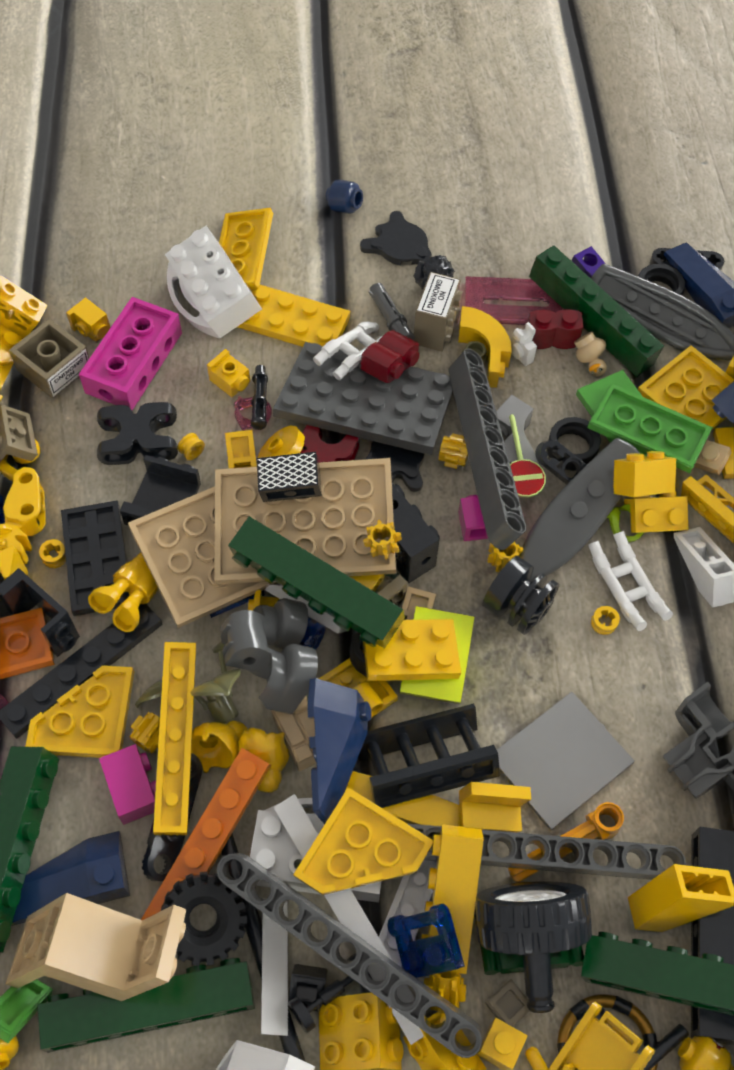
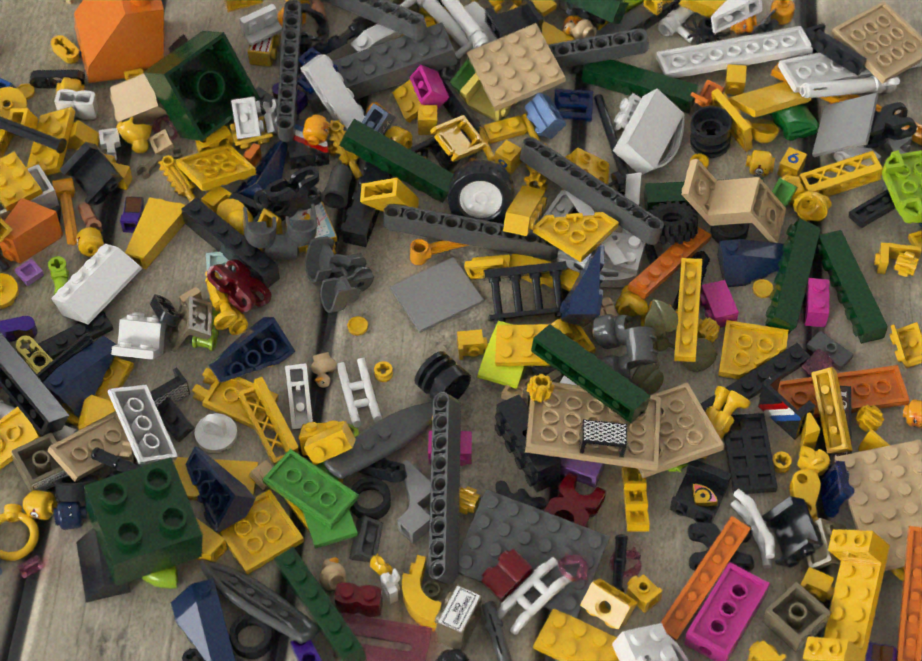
camera: 170 degrees left, 5 degrees down
(25, 399) = (818, 584): none -> yellow brick
(41, 446) = (793, 531): none -> black panel
(59, 835) = (762, 288): none -> yellow piece
(104, 479) = (760, 531): none -> white piece
(154, 383) = (704, 577): none -> orange plate
(157, 492) = (703, 496): none -> yellow tile
(191, 446) = (677, 531): yellow bush -> none
(268, 350) = (621, 604): none -> yellow brick
(283, 442) = (605, 512): yellow plate -> none
(302, 366) = (573, 559): none -> clear pink piece
(428, 954) = (544, 190): clear blue plate -> none
(493, 670) = (471, 343): none -> yellow brick
(527, 474) = (418, 462): piece -> none
(537, 369) = (379, 565): none -> yellow plate
(563, 399) = (368, 539): none -> dark grey slope
(662, 690) = (357, 326): none -> yellow piece
(689, 606) = (322, 364): none -> tan animal

